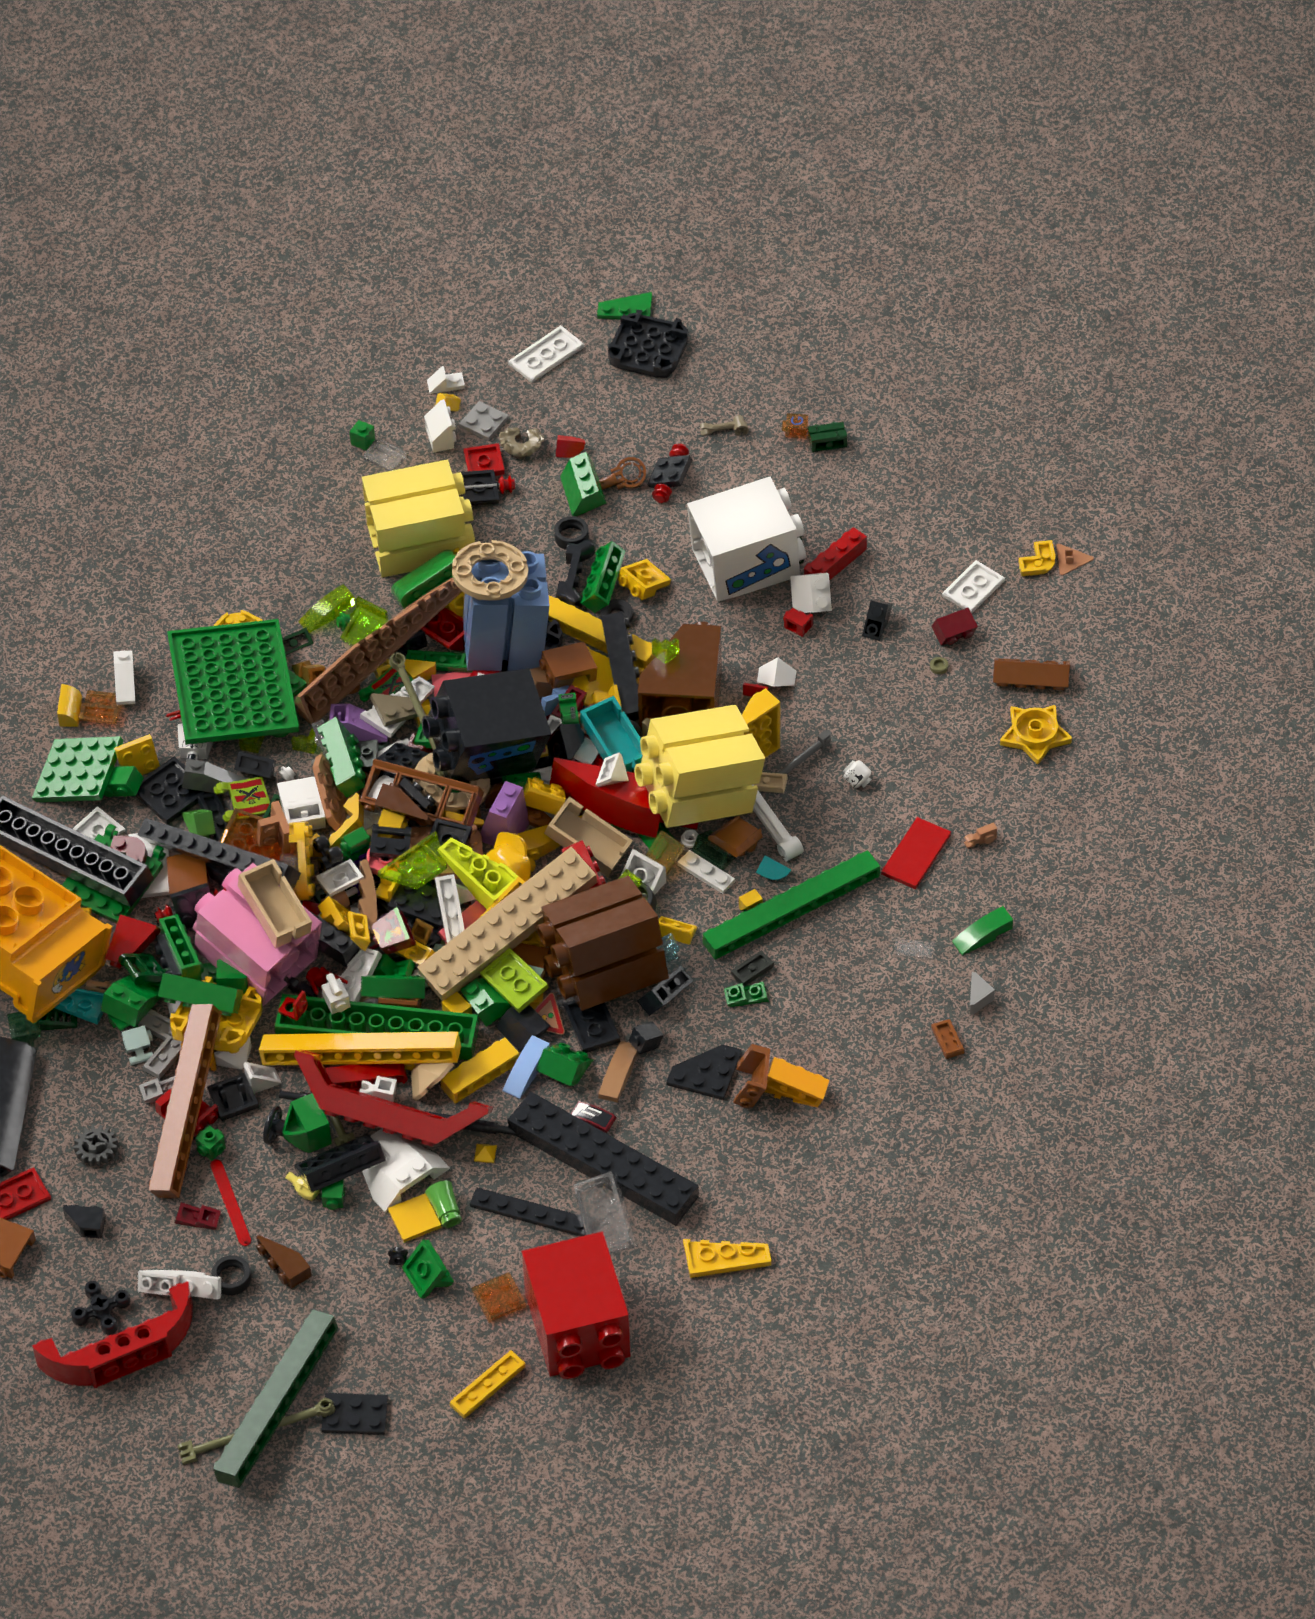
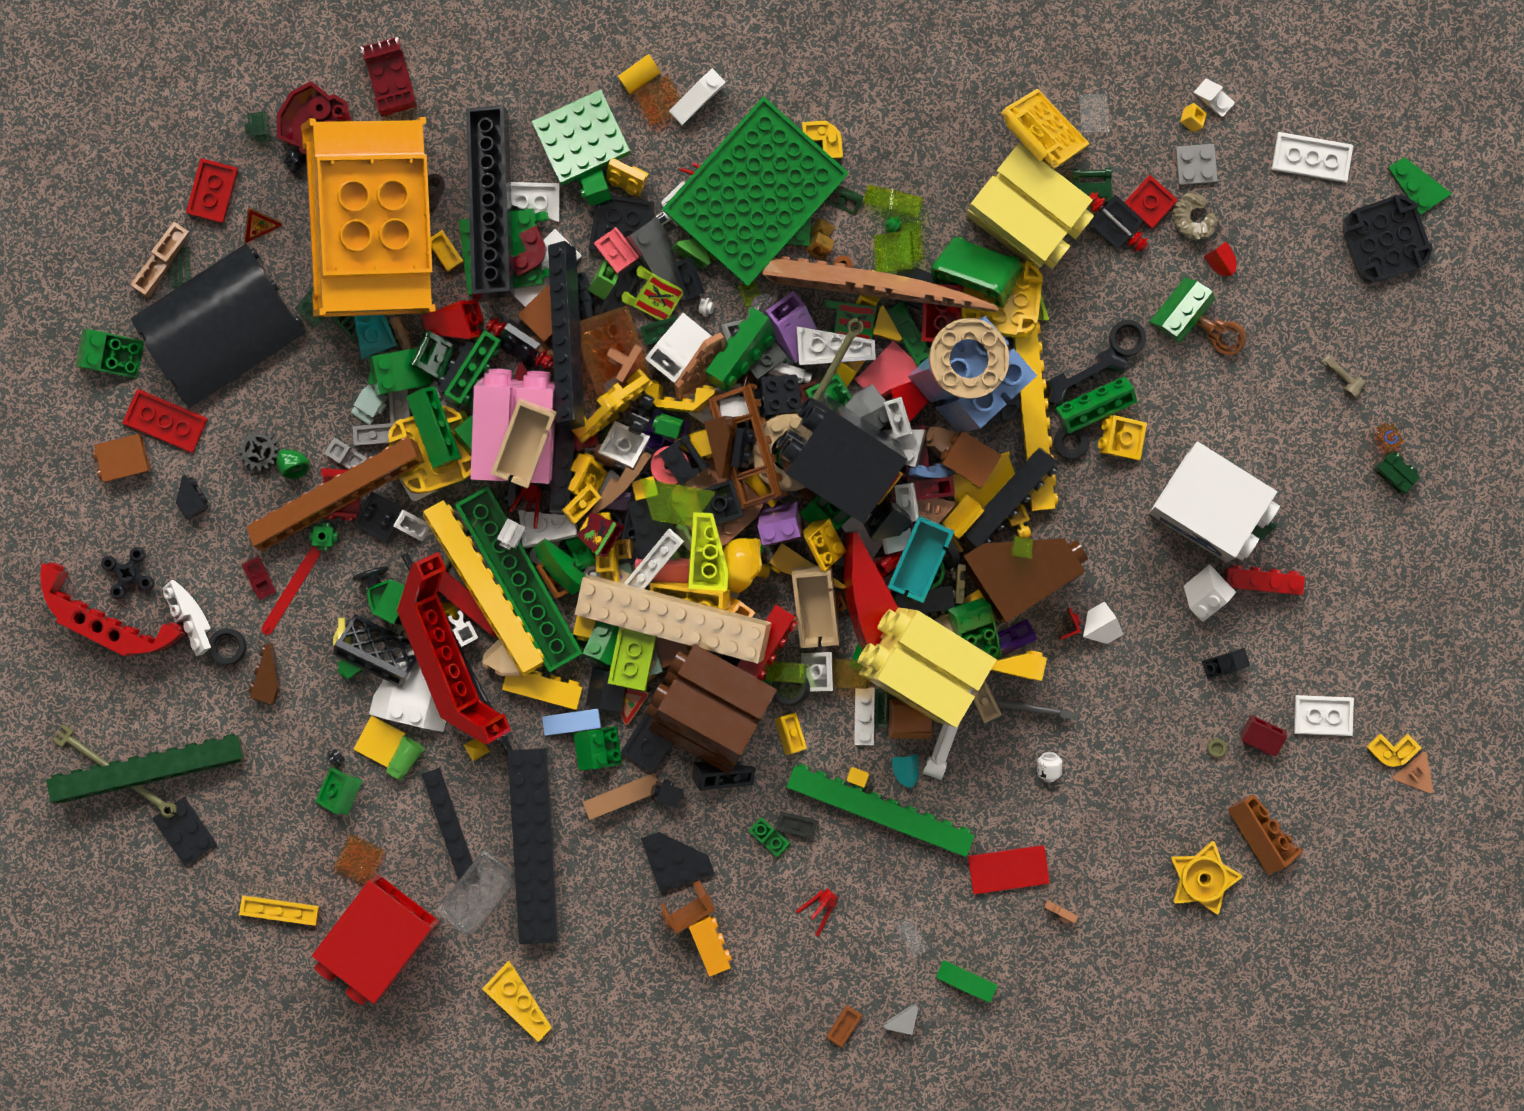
camera: 50 degrees right, 35 degrees up
(129, 1124) = (292, 460): none -> green hair
(186, 798) = (616, 250): none -> coral plate
(230, 751) = (693, 249): none -> bright green slope
(299, 1006) = (479, 514): red bracket -> none
(352, 468) = (1043, 129): none -> yellow plate
(362, 435) = (1098, 77): green brick -> none
(393, 708) = (821, 347): dark tan wing -> none
(440, 427) = (1155, 135): white slope -> none
(568, 708) = (919, 500): green leg -> none
(594, 1116) = (567, 806): slope -> none
(612, 771) = (877, 589): white slope -> none
(669, 472) = (1255, 369): black plate -> none
(670, 948) = (761, 747): clear light blue brick -> none
(798, 621) = (1173, 599): red brick -> none
(832, 986) = (827, 900): none -> red plant

